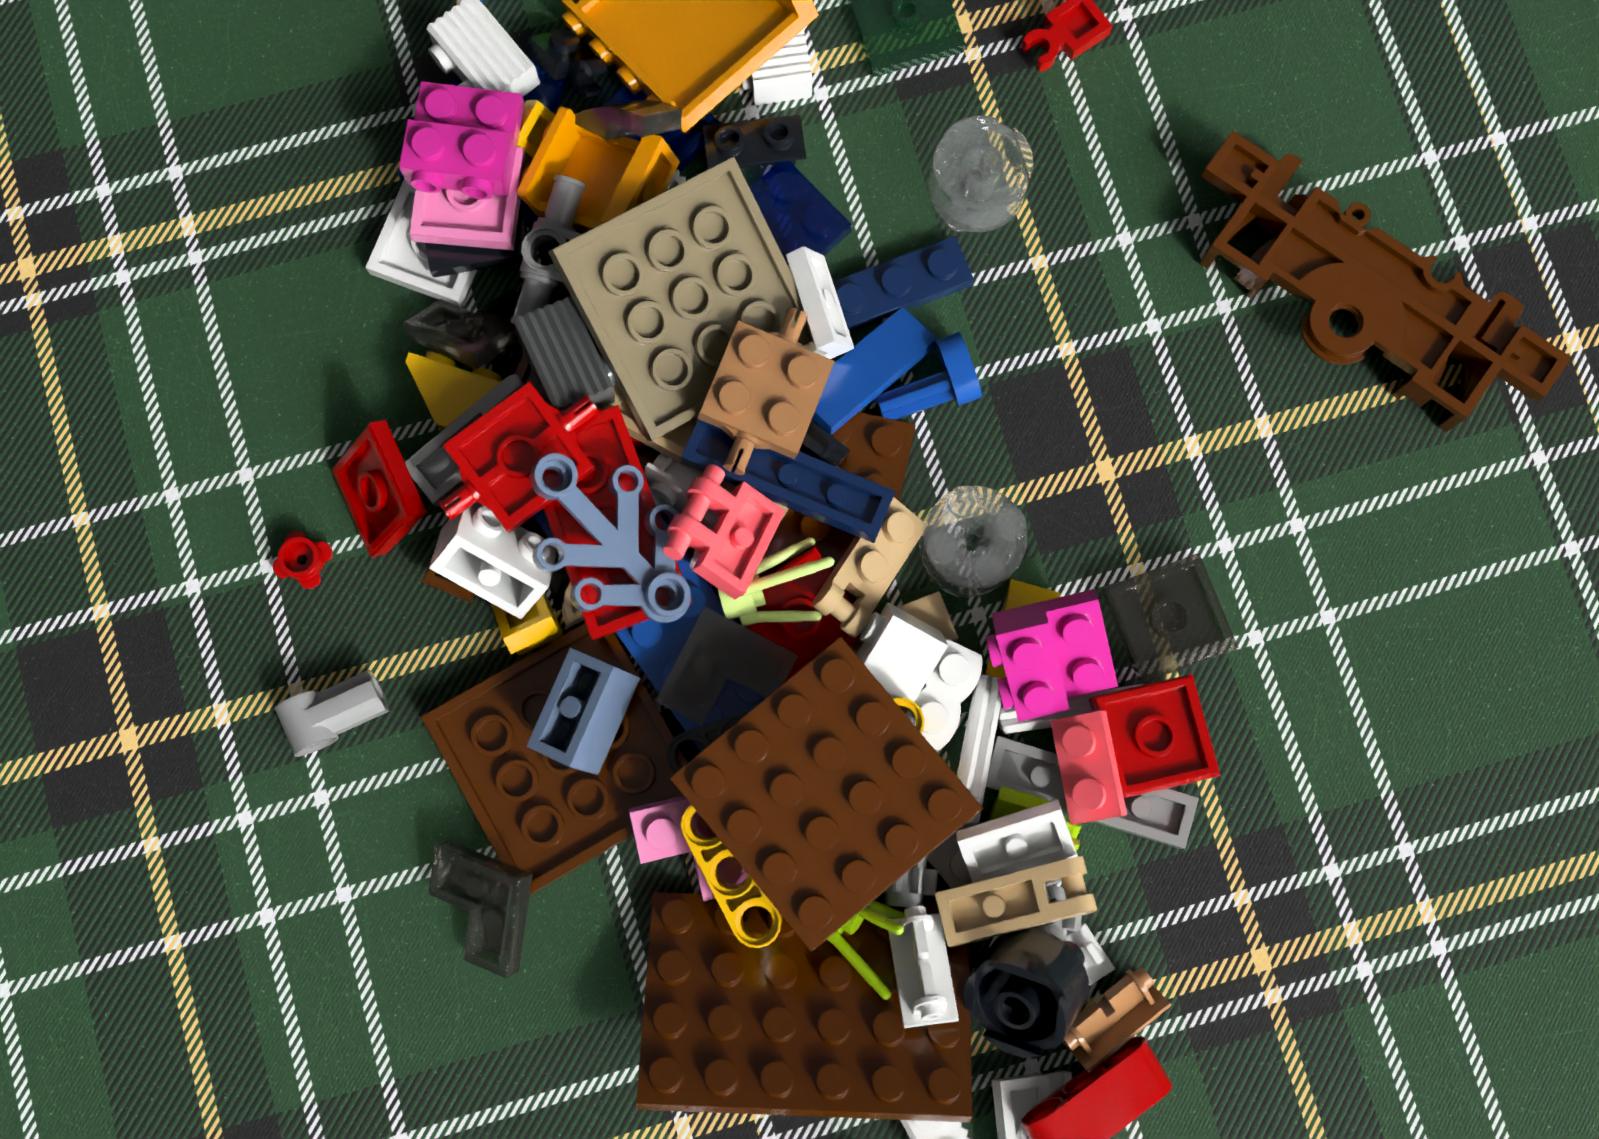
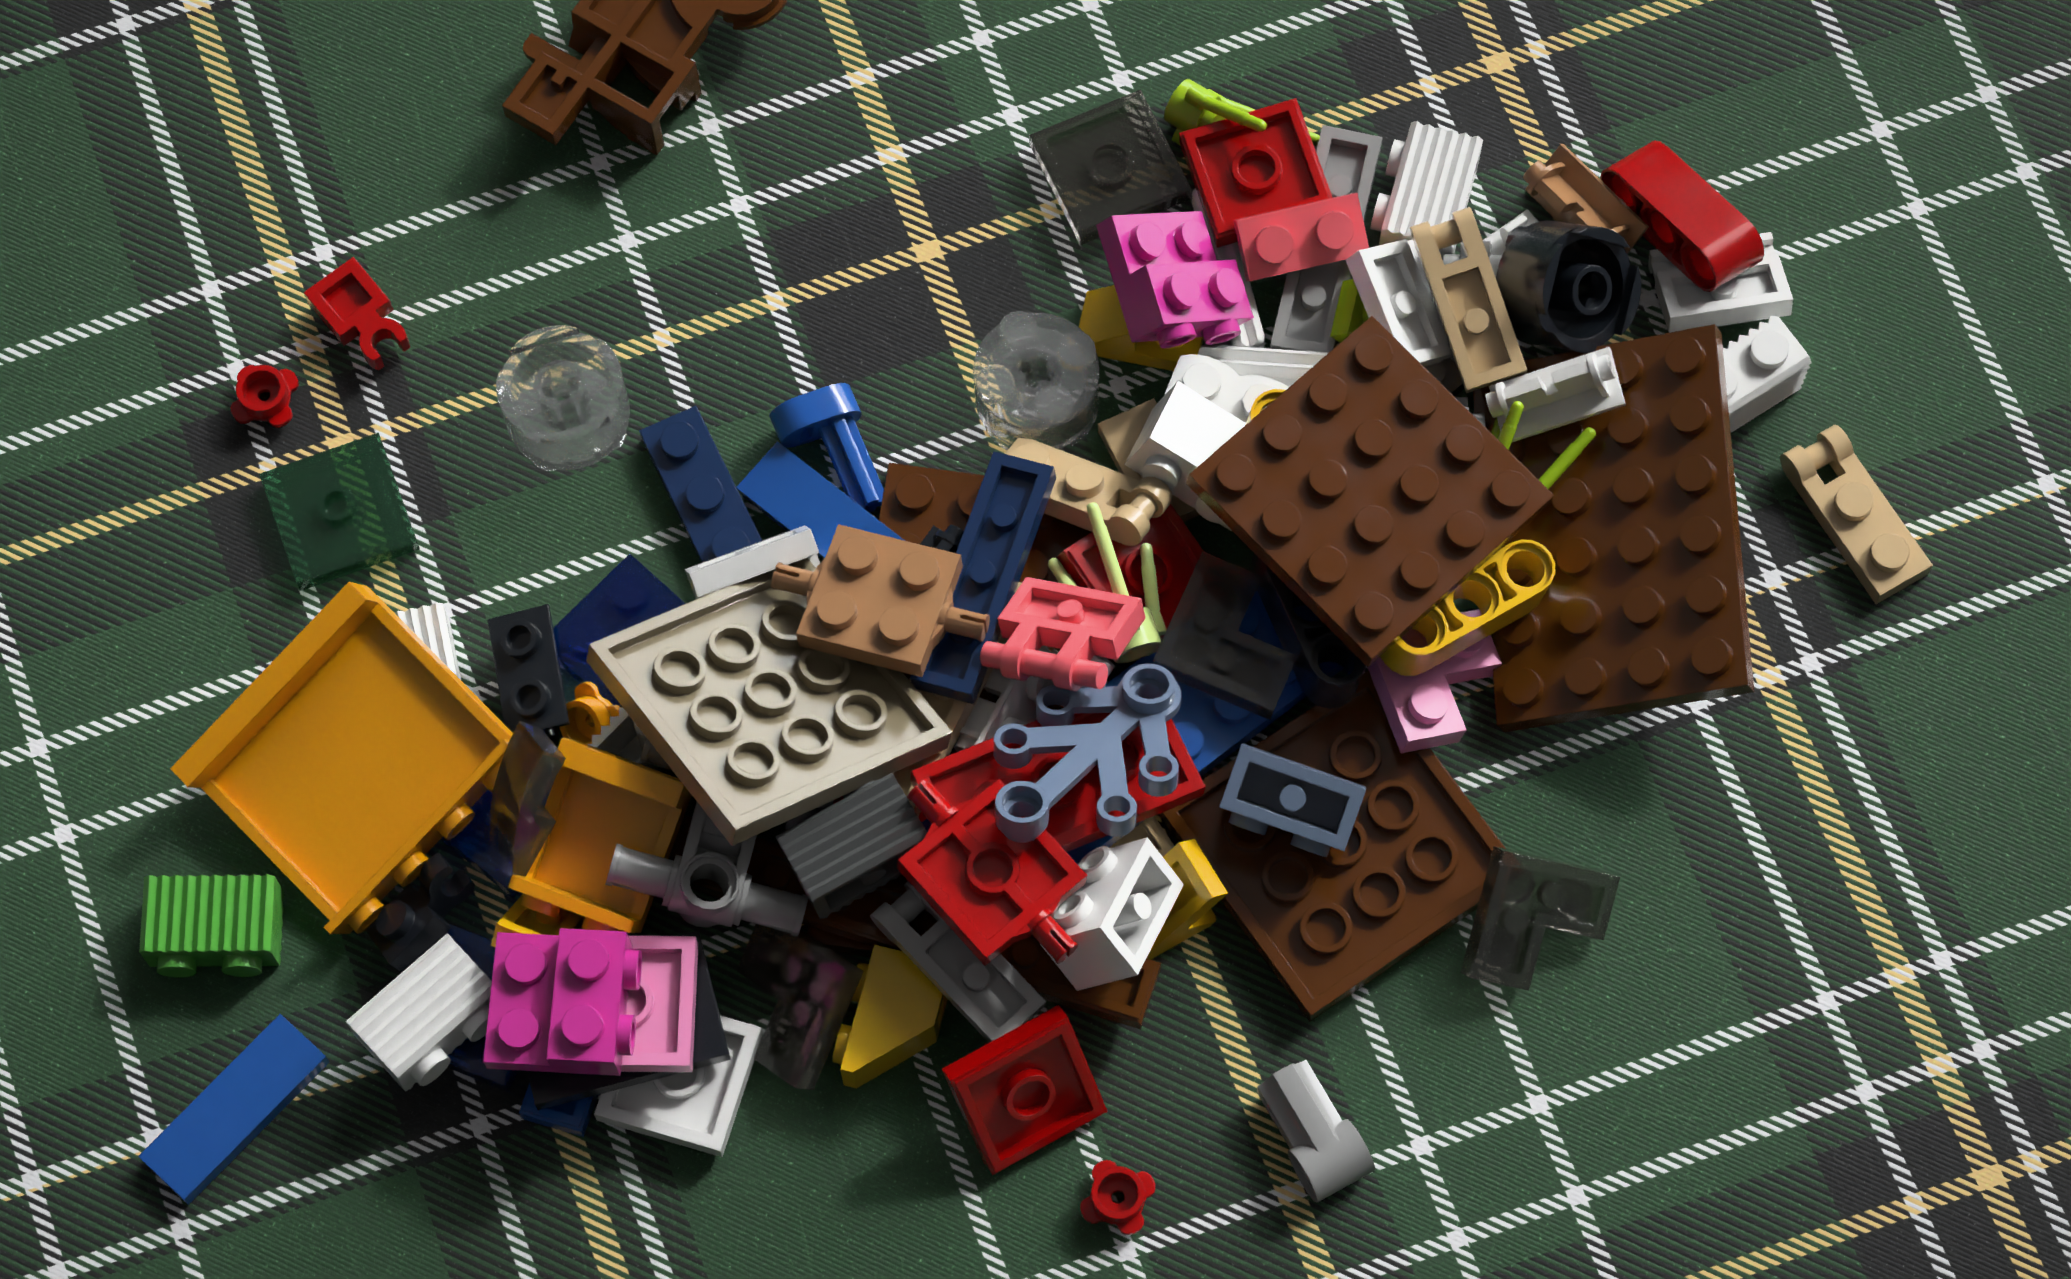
camera: 90 degrees left, 10 degrees down
(1136, 885) = (1431, 181): none -> white brick
(1219, 698) = (1197, 106): none -> lime plant

